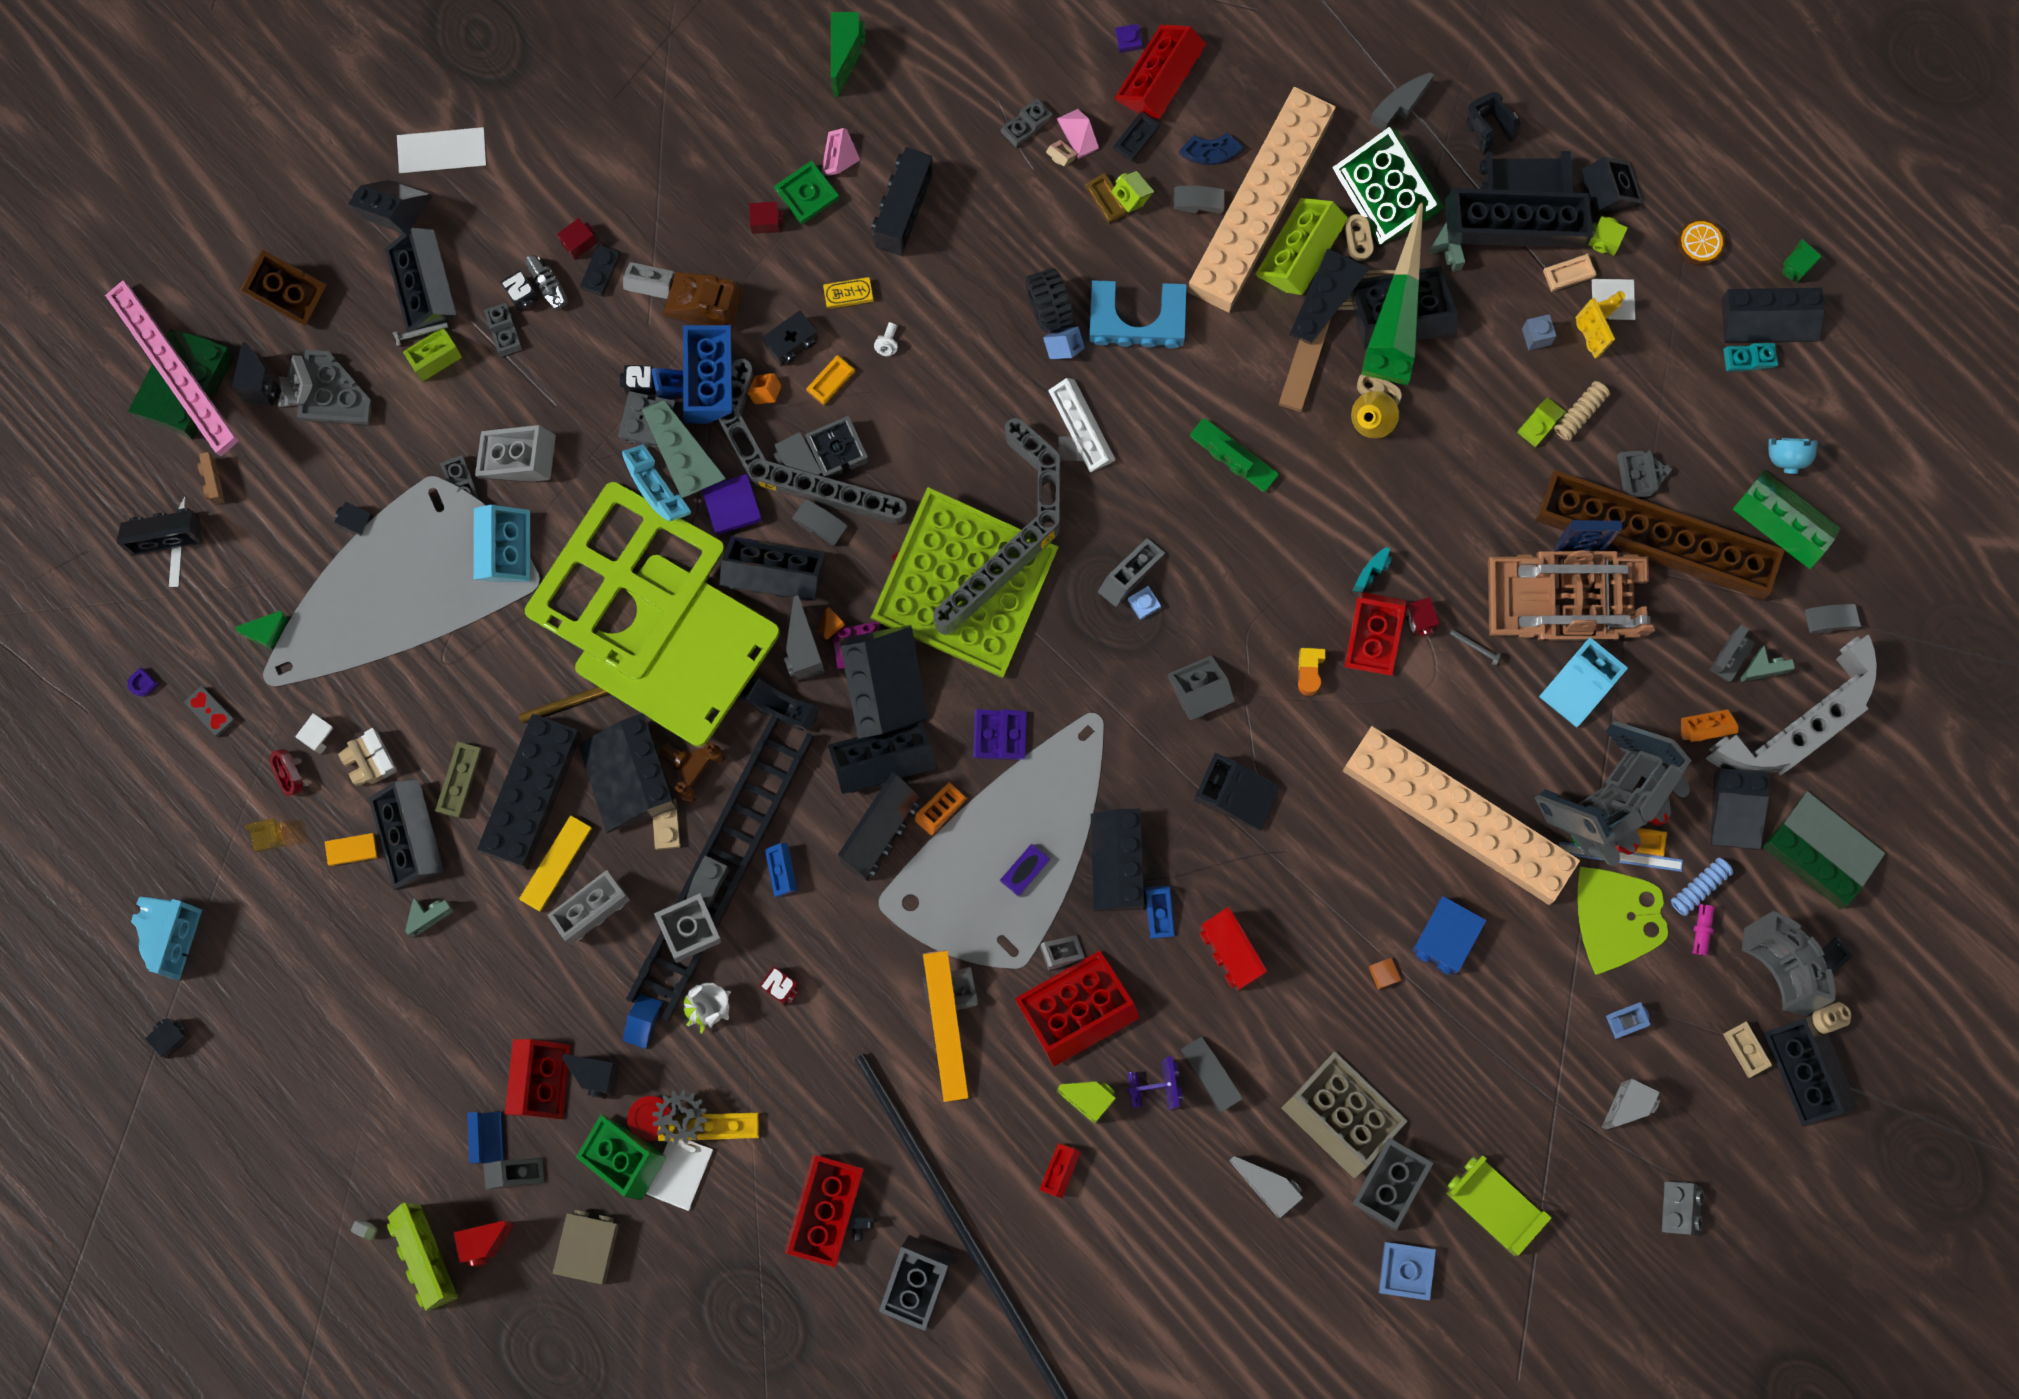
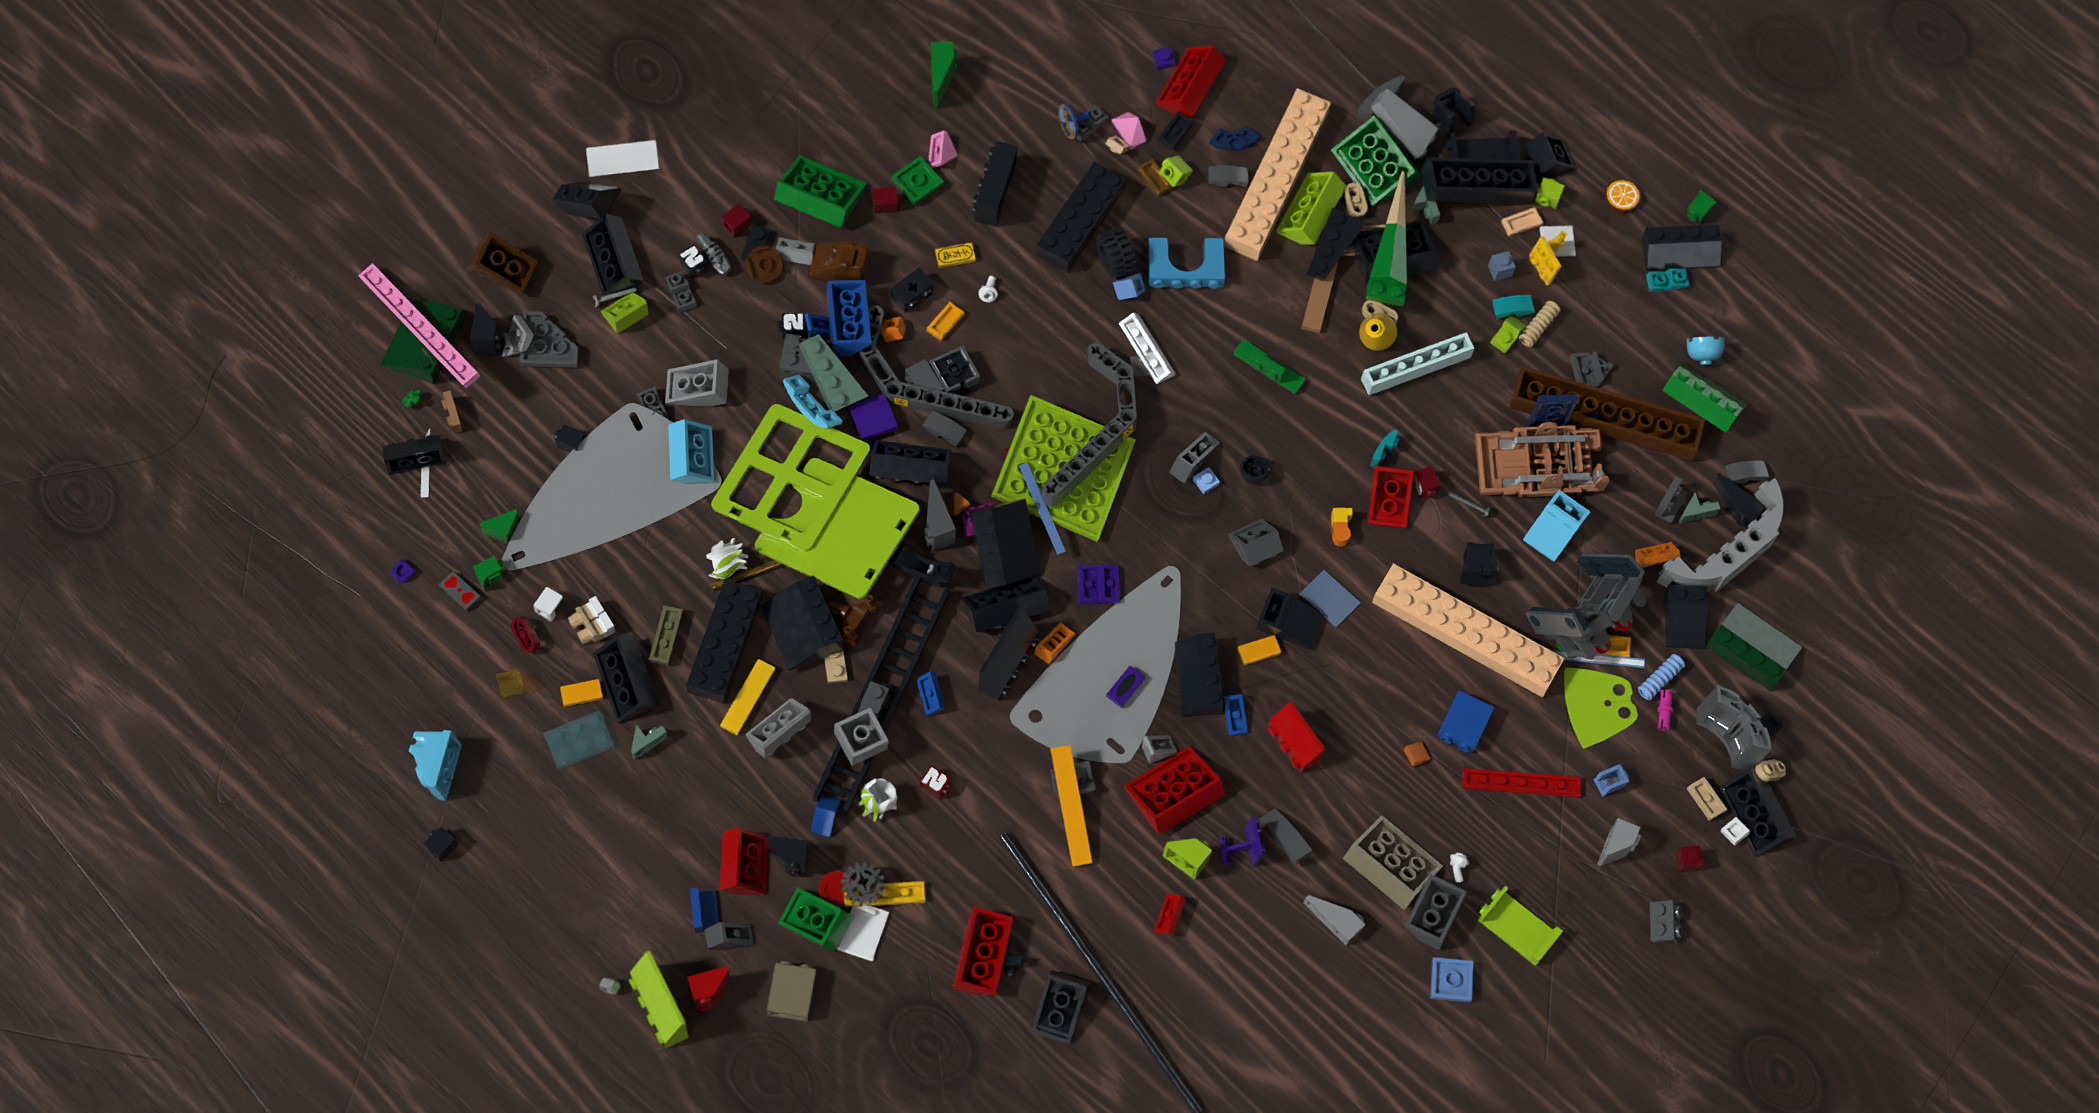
camera: 10 degrees left, 10 degrees down
(163, 458) = (412, 397): none -> green plant
(245, 689) = (489, 571): none -> green window
(344, 910) = (578, 740): none -> clear light blue plate
(537, 686) = (726, 559): none -> white hair
(607, 298) = (764, 264): none -> reddish brown tile
(683, 202) = (819, 191): none -> green slope
(933, 636) = (1043, 511): none -> medium blue sticker
(1002, 119) = (1069, 120): none -> shield
(1008, 248) = (1080, 217): none -> black brick
(1195, 829) = (1259, 650): none -> light orange tile
(1205, 595) = (1254, 474): none -> black helmet
(1289, 764) = (1330, 598): none -> sand blue window
(1422, 459) = (1417, 363): none -> light aqua brick
(1427, 1119) = (1458, 861): none -> white plate
(1428, 138) = (1405, 124): none -> light grey slope
(1481, 730) = (1479, 565): none -> black piece
(1514, 1017) = (1521, 783): none -> red tile
(1554, 385) = (1510, 305): none -> teal slope
(1719, 1128) = (1689, 859): none -> dark red brick
(1780, 1094) = (1735, 831): none -> white plate
(1821, 663) = (1739, 503): none -> black slope

